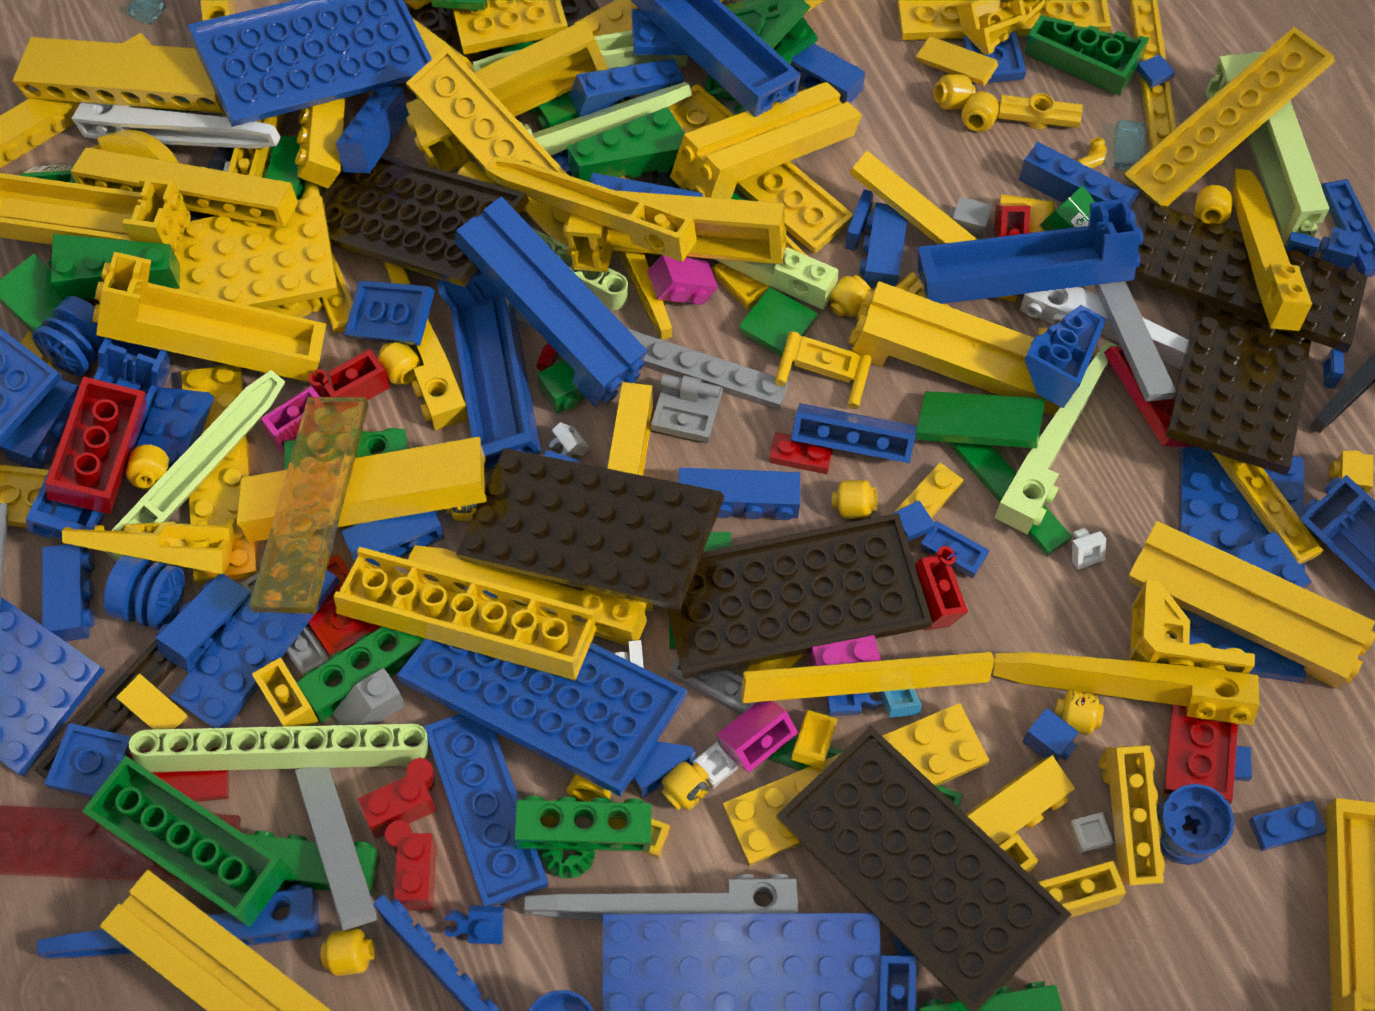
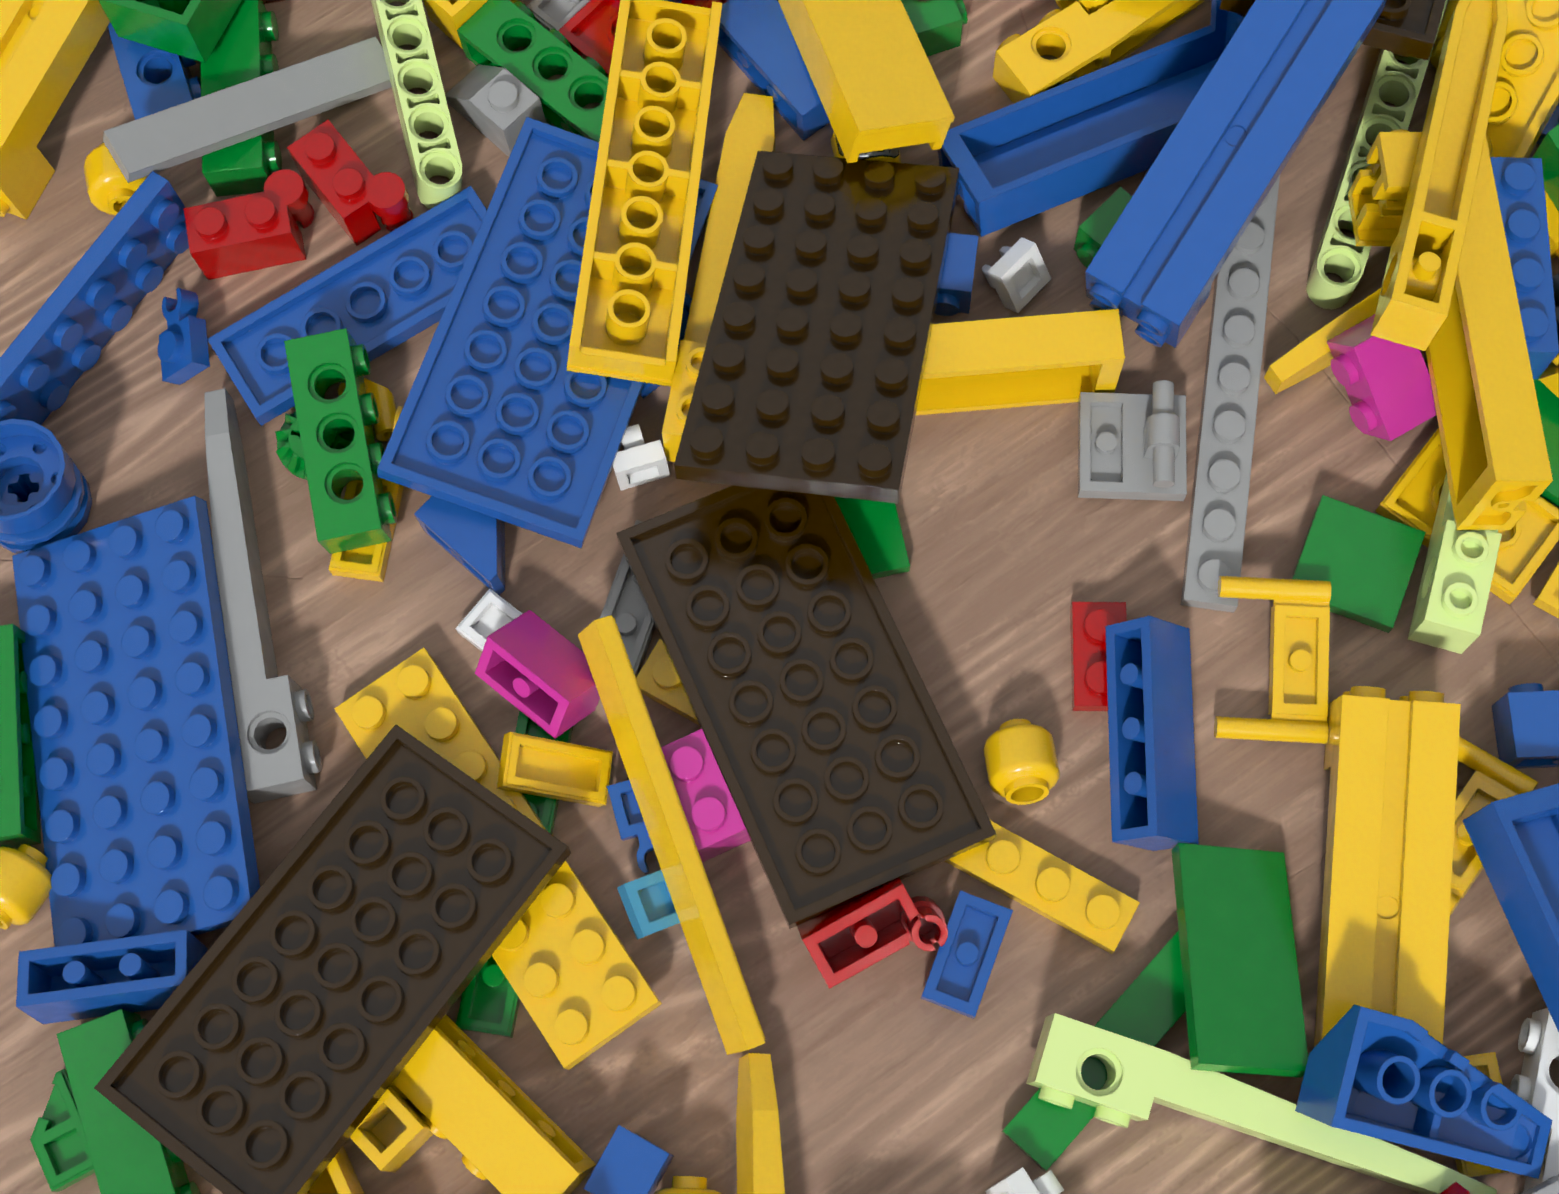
camera: 85 degrees right, 10 degrees up
(685, 785) = (440, 583): yellow head -> none
(749, 491) = (984, 562): blue brick -> none
(848, 296) = (1453, 671): yellow head -> none
(915, 520) = (995, 867): blue tile -> none

